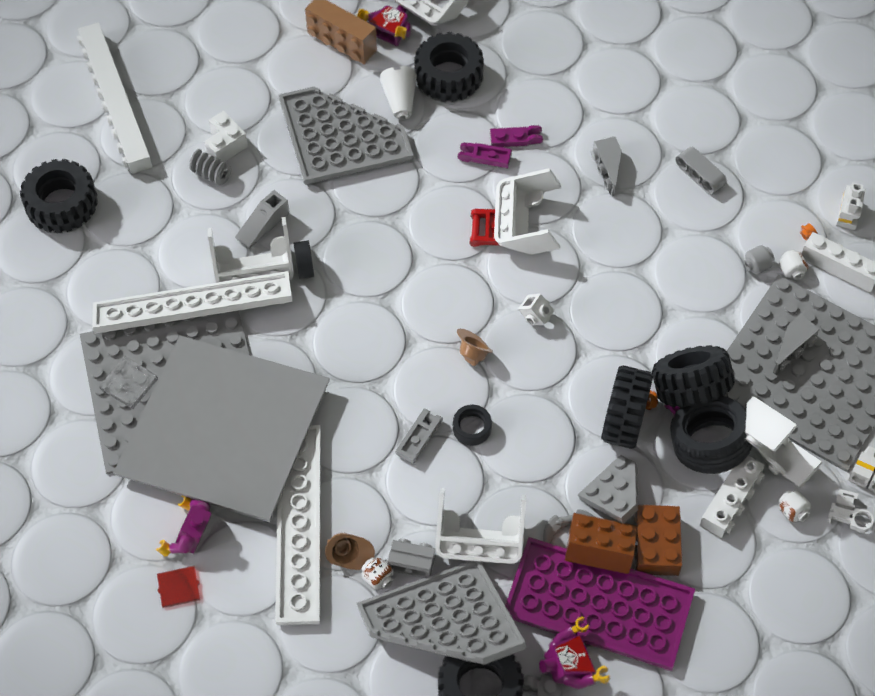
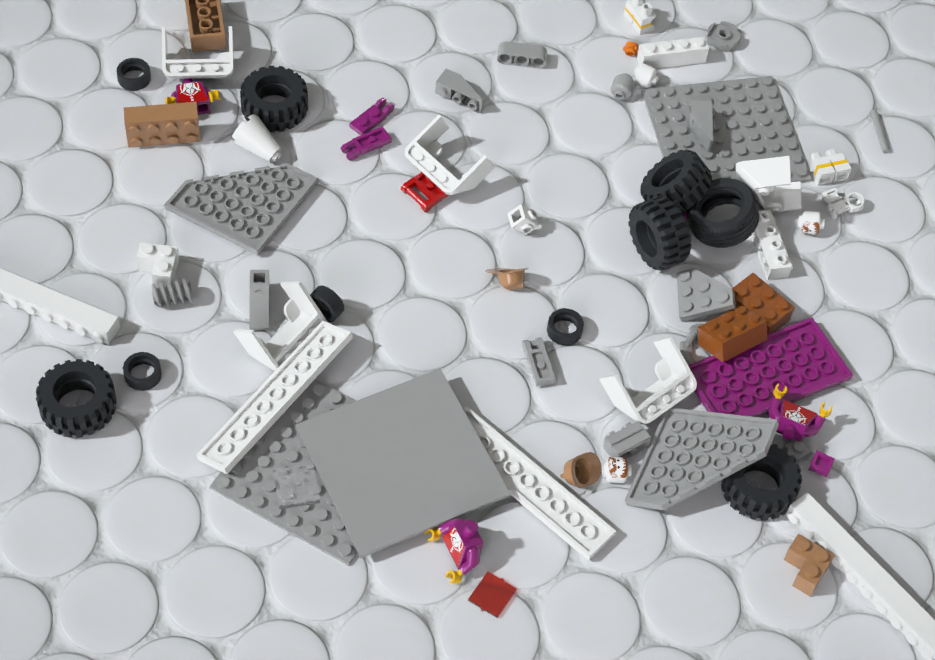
camera: 50 degrees left, 5 degrees down
(130, 222) = (139, 359): none -> black tyre

